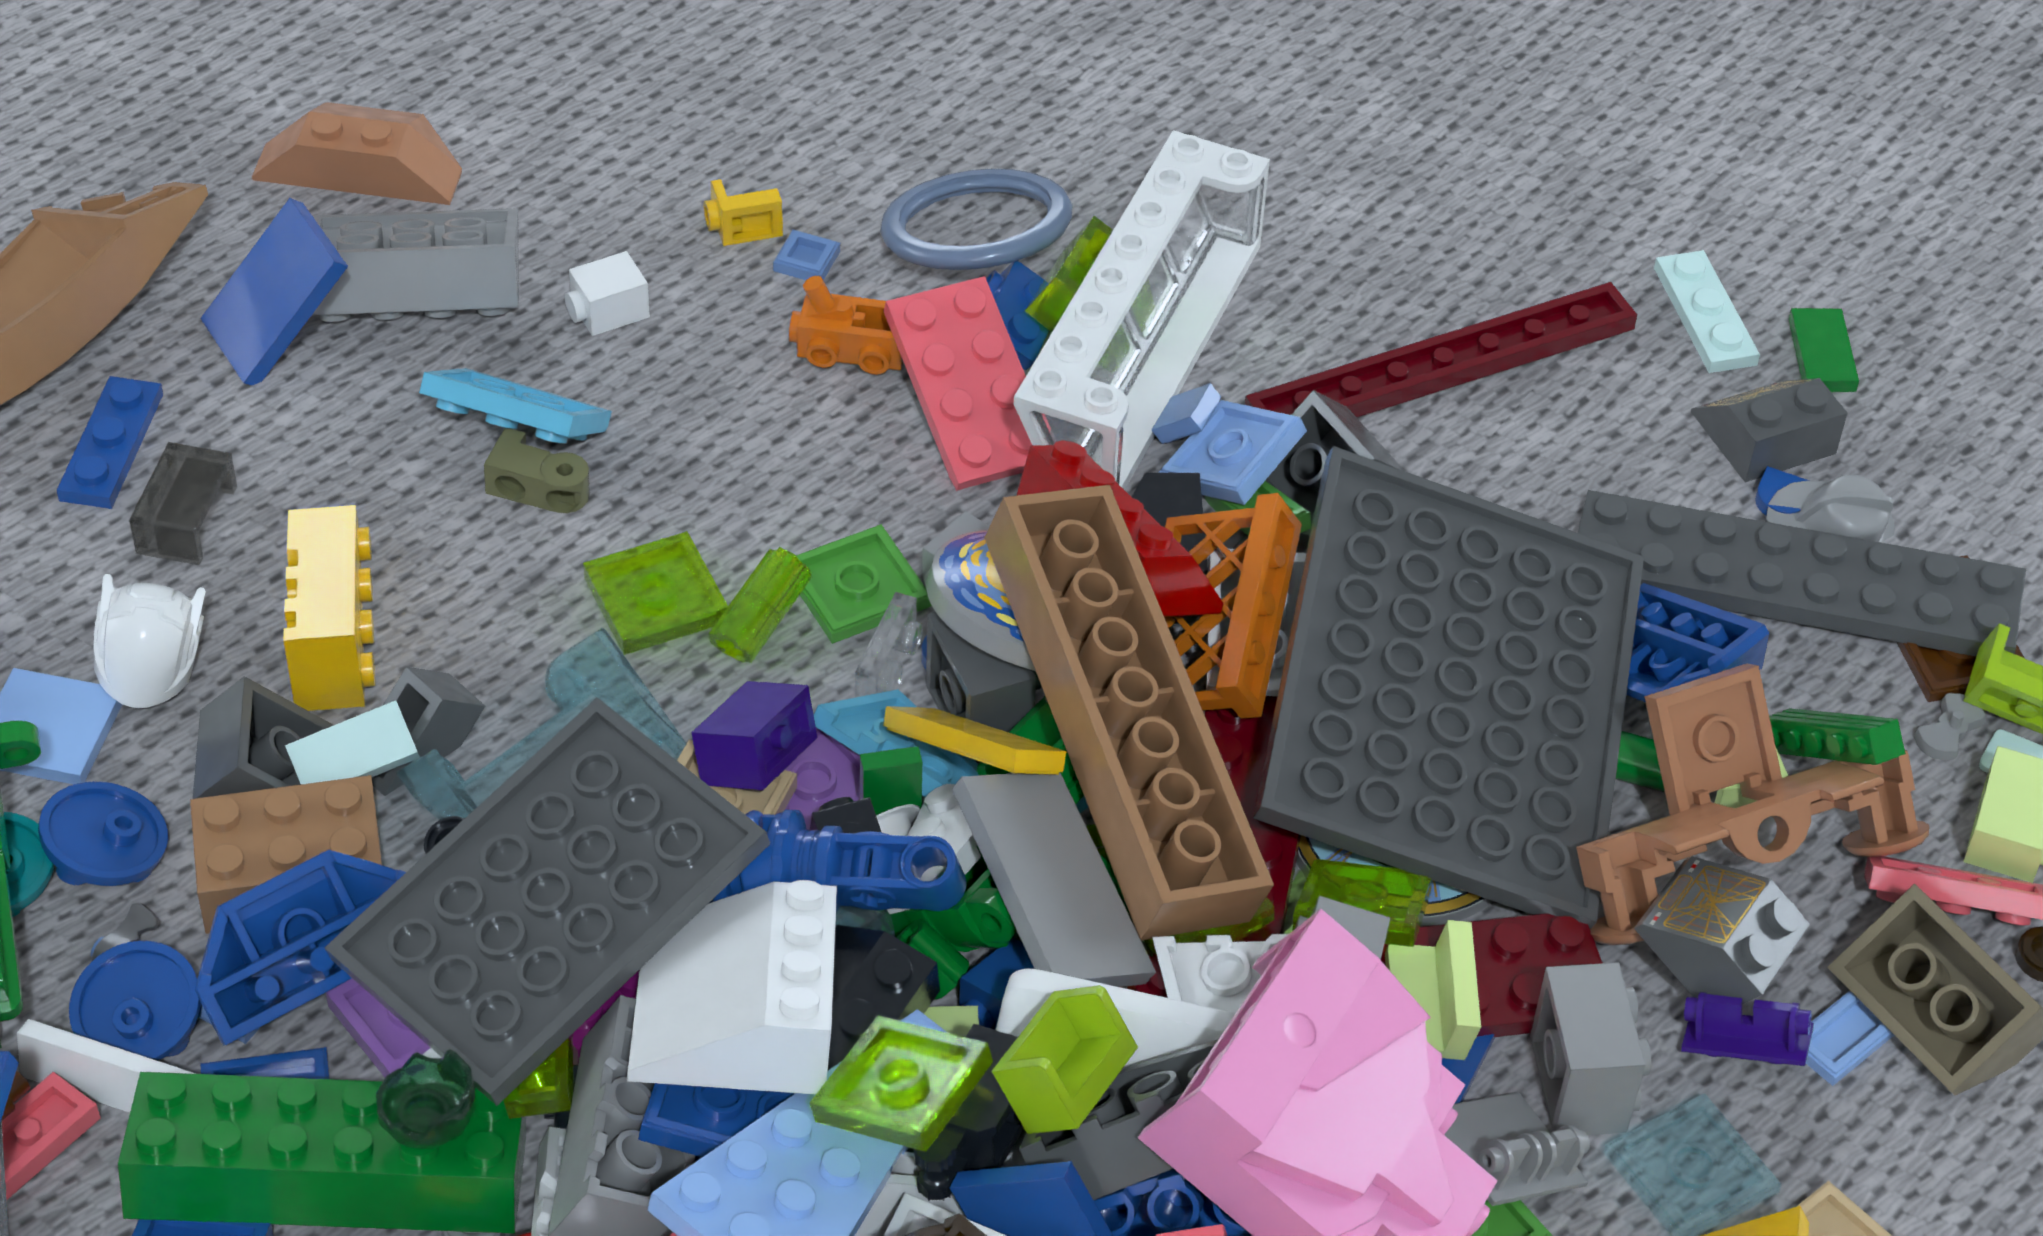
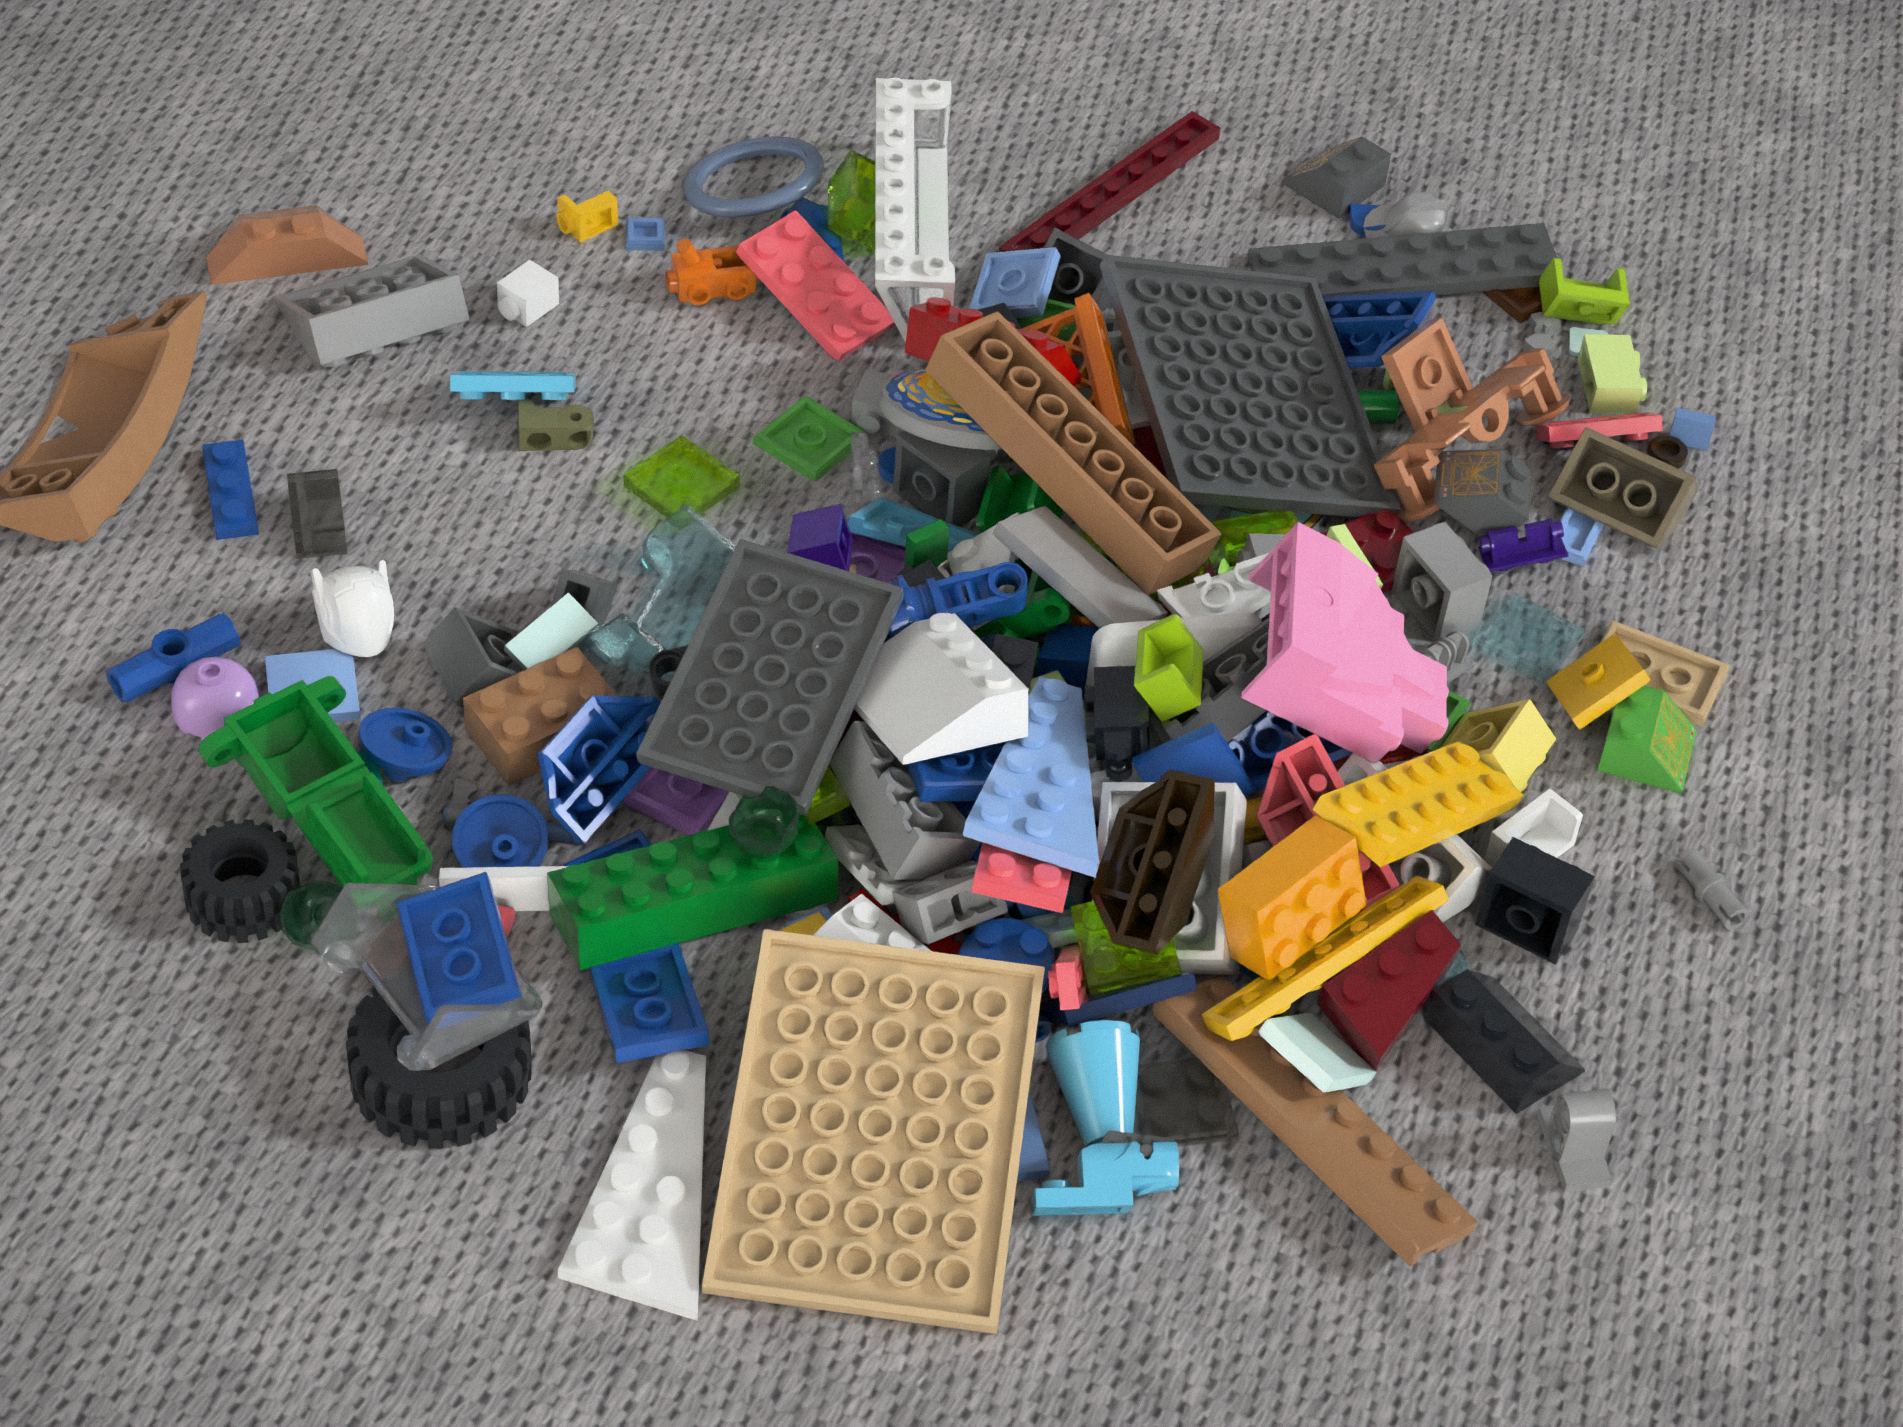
camera: 25 degrees left, 0 degrees up
(273, 292) = (299, 352): blue tile -> none
(326, 610) = (467, 551): yellow wedge -> none
(760, 605) = (761, 468): clear neon green axle -> none
(901, 1083) = (1078, 711): clear neon green plate -> none
(975, 740) = (973, 505): yellow tile -> none
(1186, 413) = (970, 267): medium blue tile -> none
(1706, 311) = (1258, 115): light aqua plate -> none
(1824, 347) = (1342, 118): green tile -> none
(1837, 736) = (1501, 351): green piece -> none

